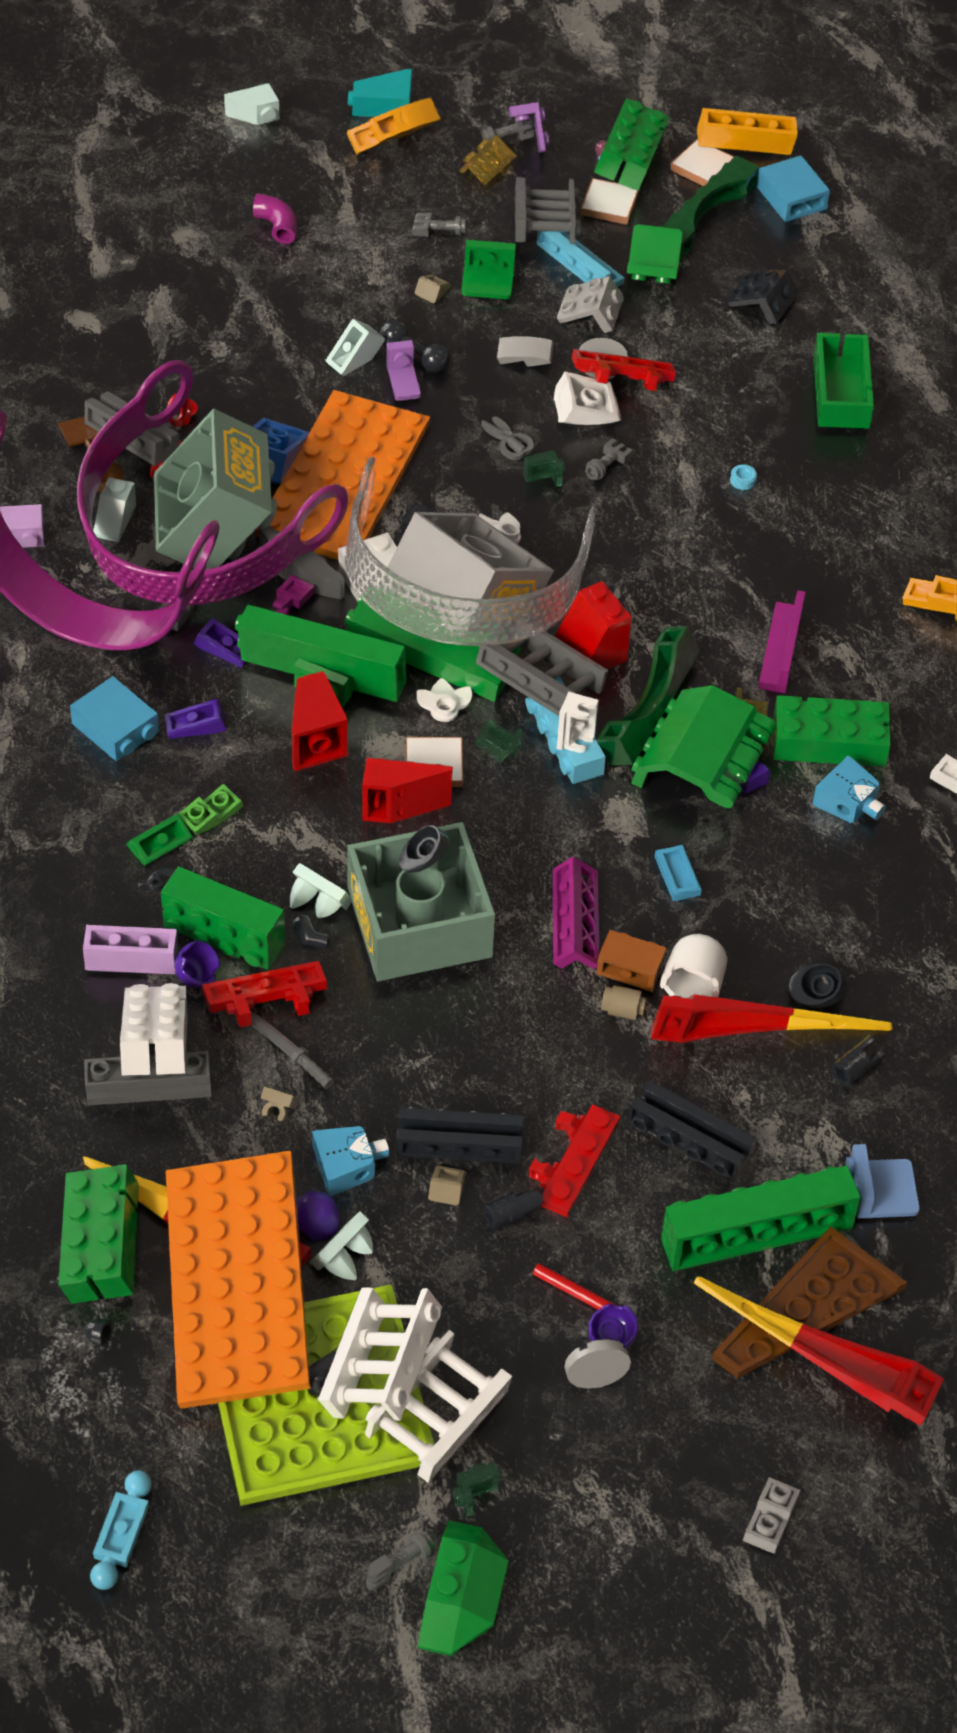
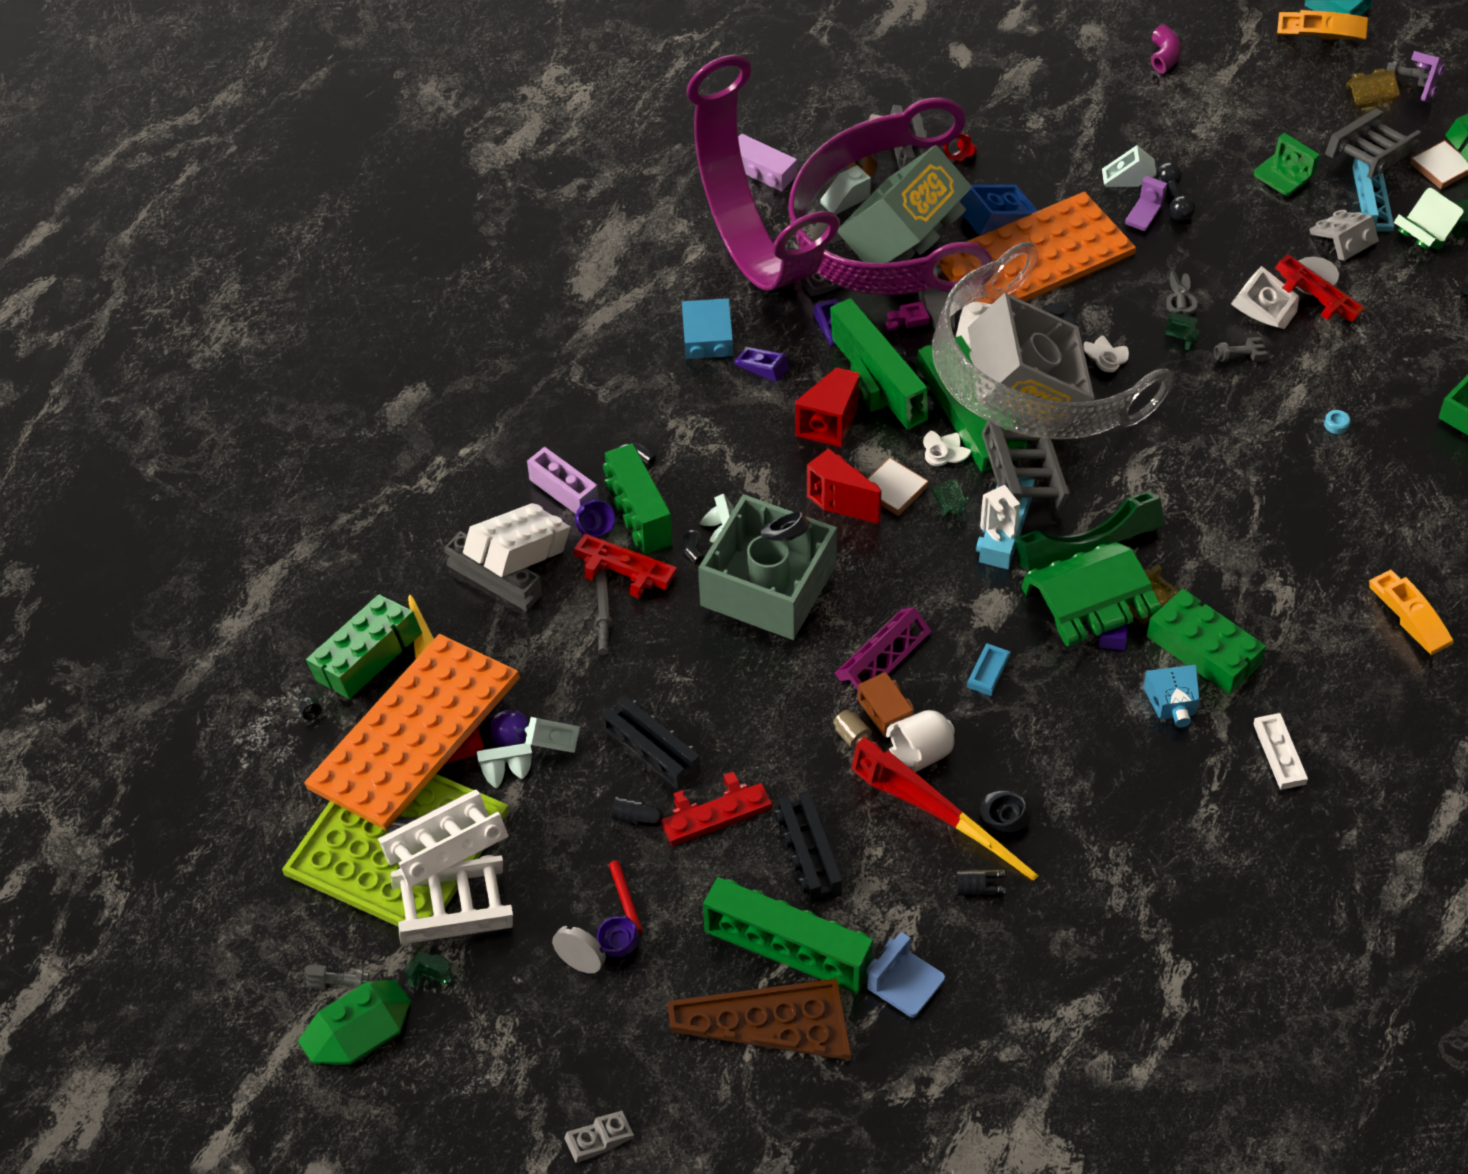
camera: 45 degrees right, 0 degrees up
(121, 1530) = (201, 835): medium azure plate -> none
(160, 839) = (659, 425): green slope -> none
(212, 811) = (704, 427): bright green slope -> none
(280, 1100) = (560, 639): dark tan tile -> none
(346, 1157) = (565, 702): dark azure torso -> none
(369, 1191) = (552, 734): none -> light aqua tile
(424, 223) = (1280, 109): dark grey hinge -> none
(431, 288) = (1235, 157): dark tan slope -> none
(447, 1185) = (613, 769): dark tan slope -> none
(531, 350) = (1257, 237): light grey slope -> none
(597, 626) = (1091, 463): red slope -> none
(781, 645) = (1237, 558): magenta fence -> none
(876, 1375) = (759, 1098): red plate -> none

